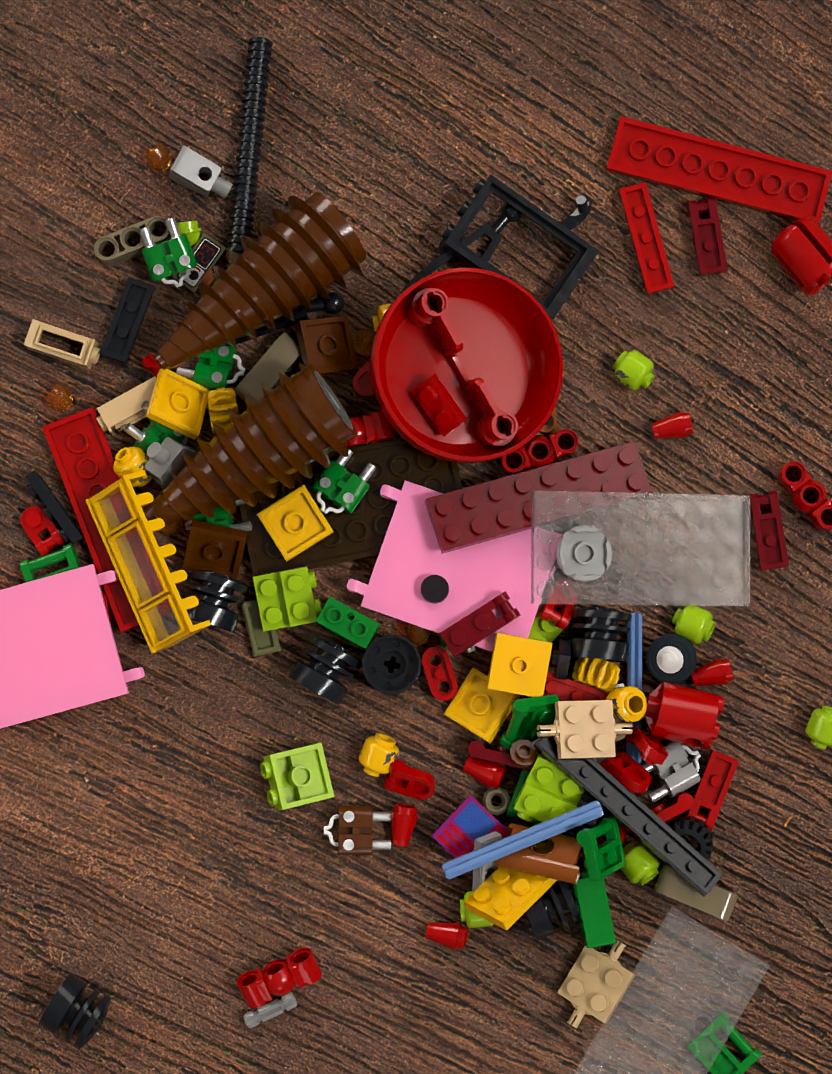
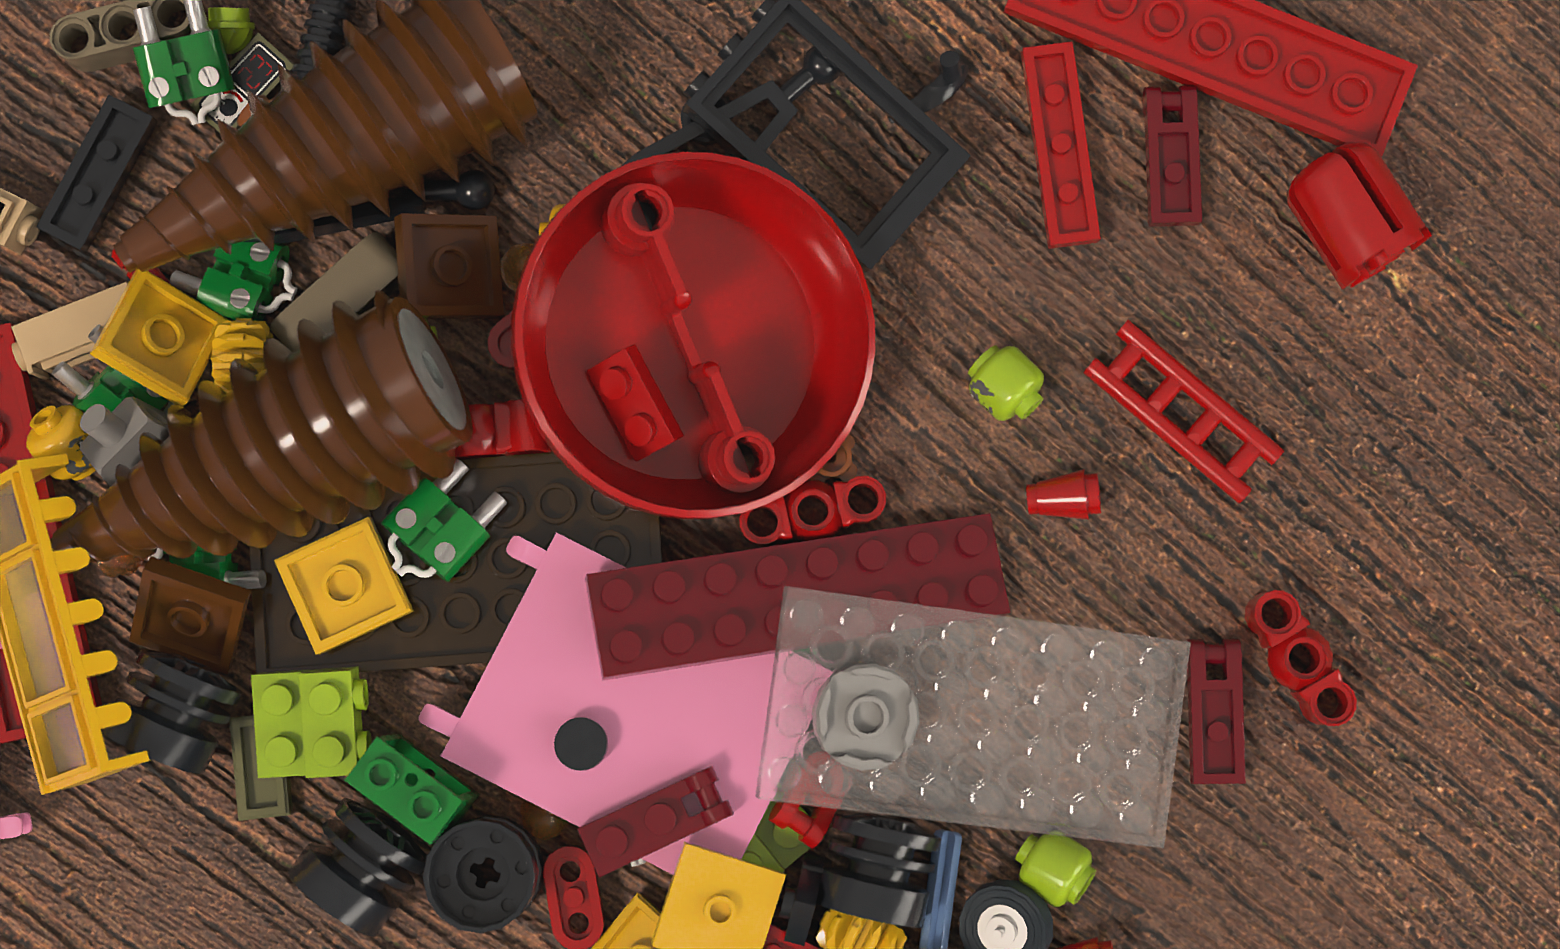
camera: 10 degrees right, 0 degrees up
(735, 390) = (1216, 411): none -> red bar

